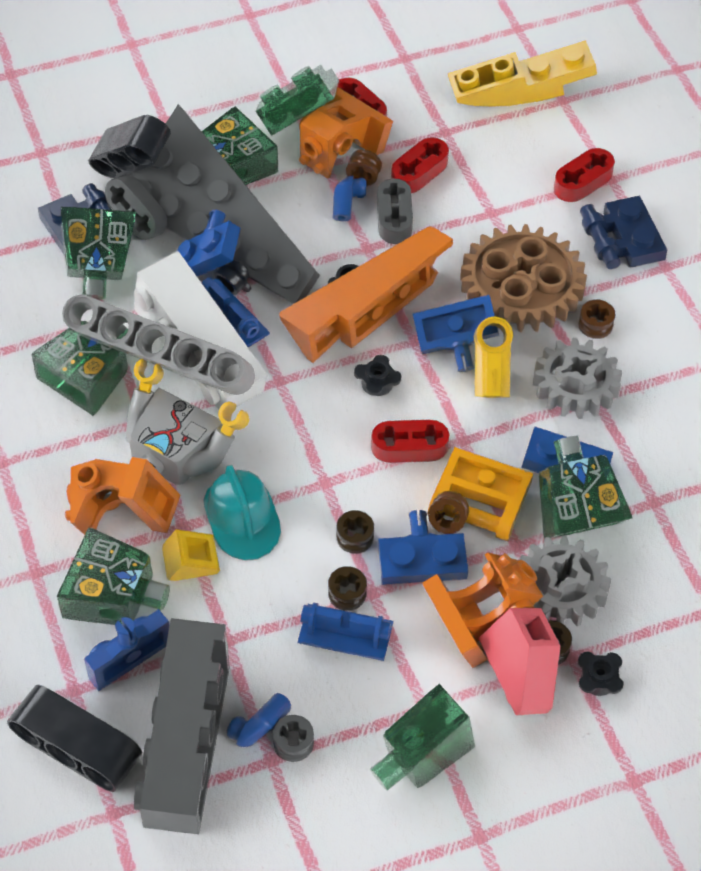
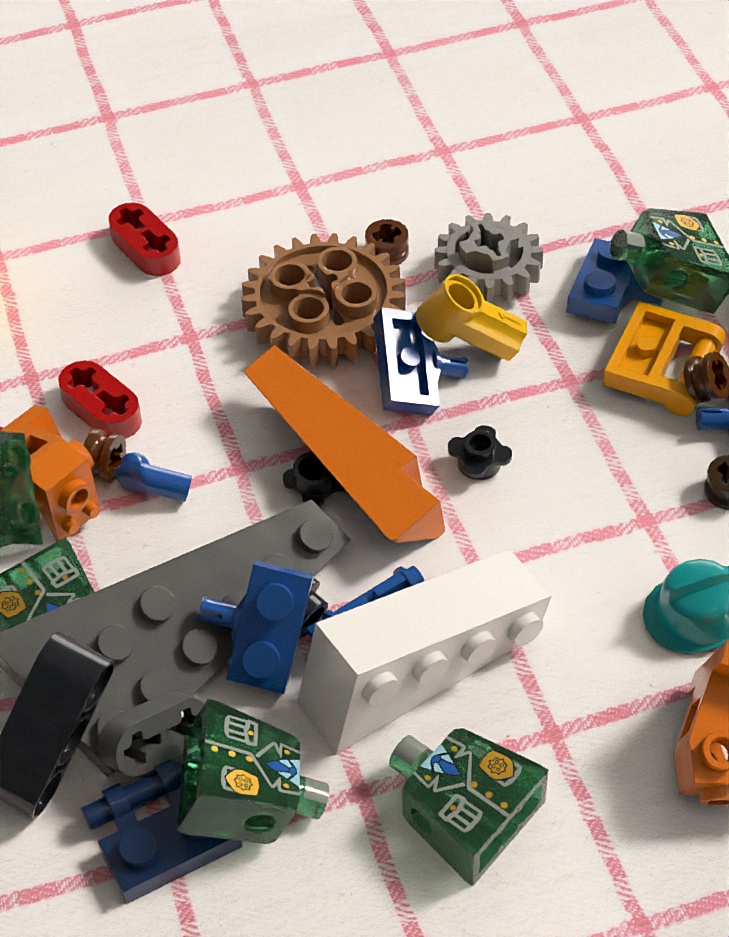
camera: 85 degrees left, 5 degrees down
(143, 333) = (534, 581): light grey beam -> none
(176, 434) = (605, 670): light grey torso -> none
(400, 211) = (183, 429): dark grey beam -> none
(410, 441) = (594, 424): red beam -> none
(633, 229) = (247, 210): dark blue plate -> none

